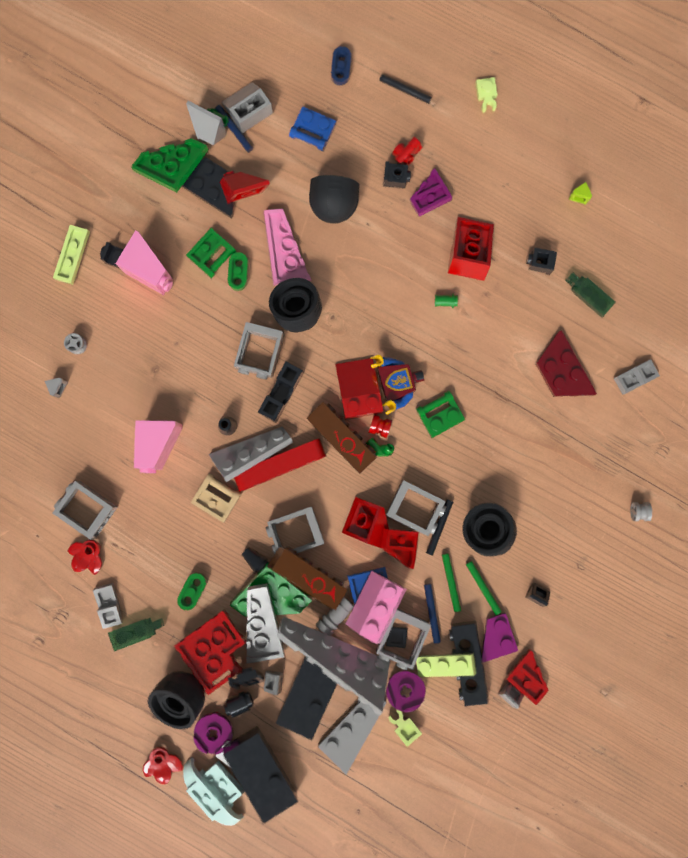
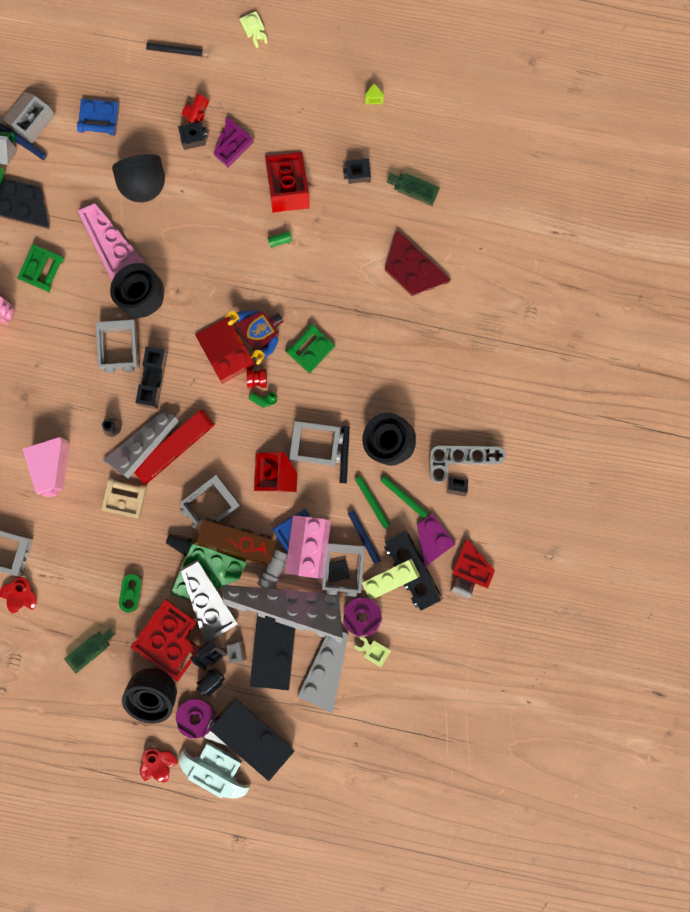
camera: 20 degrees left, 0 degrees up
(108, 605) = (55, 634): light grey slope -> none
(238, 272) = (73, 277): green plate -> none
(242, 185) = (48, 194): red slope -> none
(341, 67) = (105, 49): dark blue plate -> none
(341, 437) = (223, 401): reddish brown brick -> none
(401, 545) = (313, 483): red wing -> none
(556, 571) = (466, 460): none -> light grey beam
(636, 377) = (483, 251): light grey slope -> none
(641, 511) = (527, 376): light grey wheel -> none

